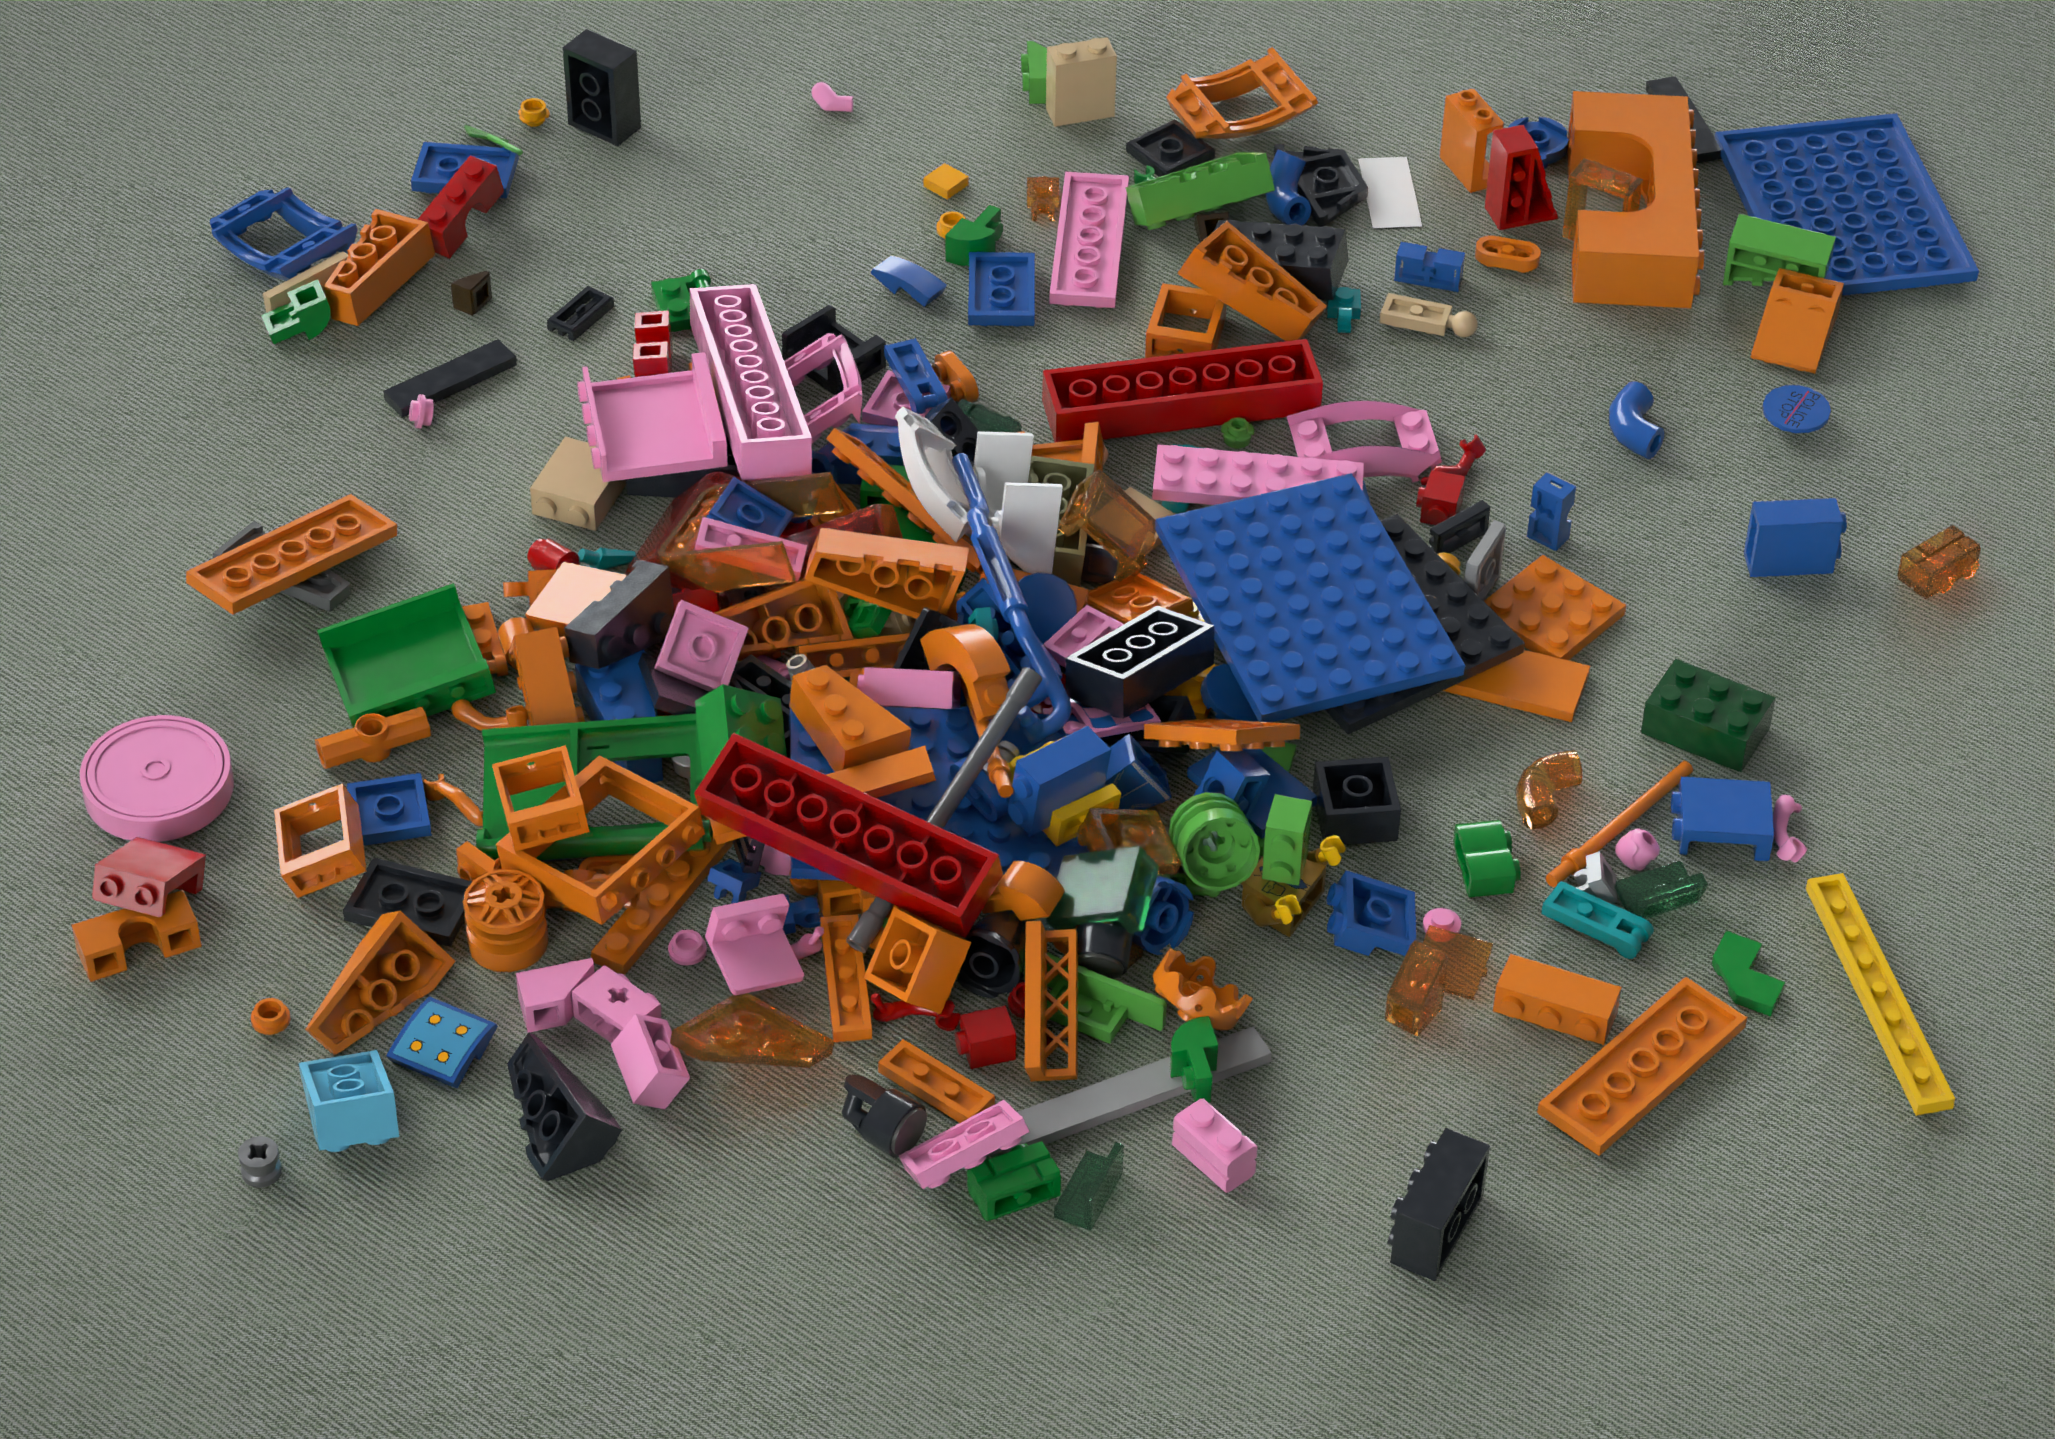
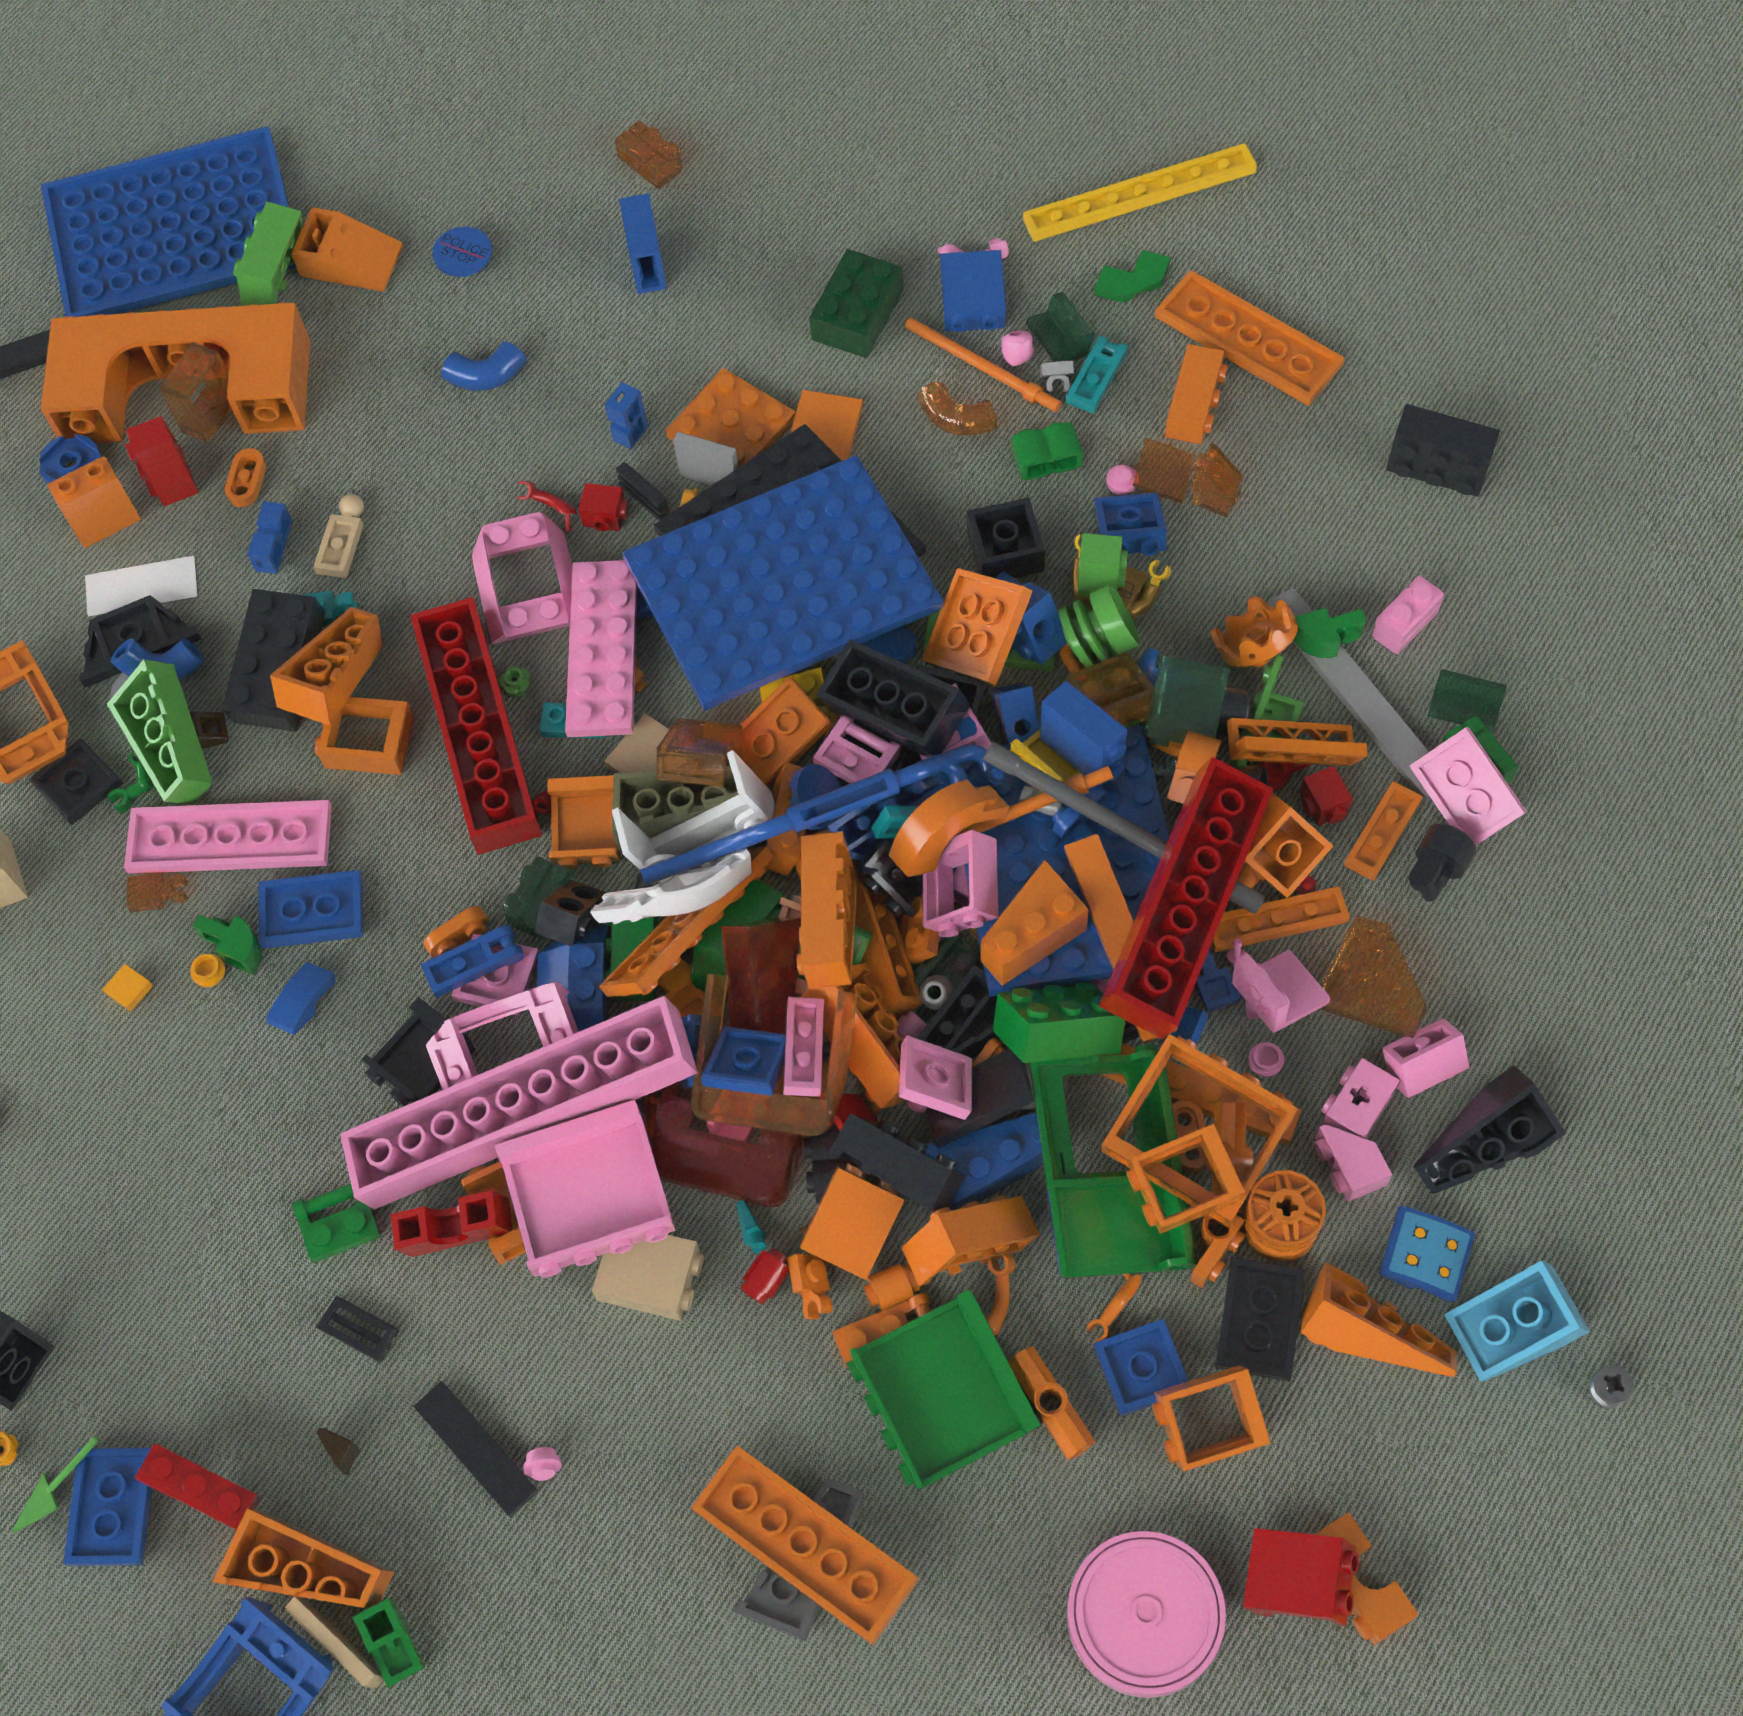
camera: 90 degrees left, 20 degrees up
(270, 1016) = (1438, 1413): orange plate -> none

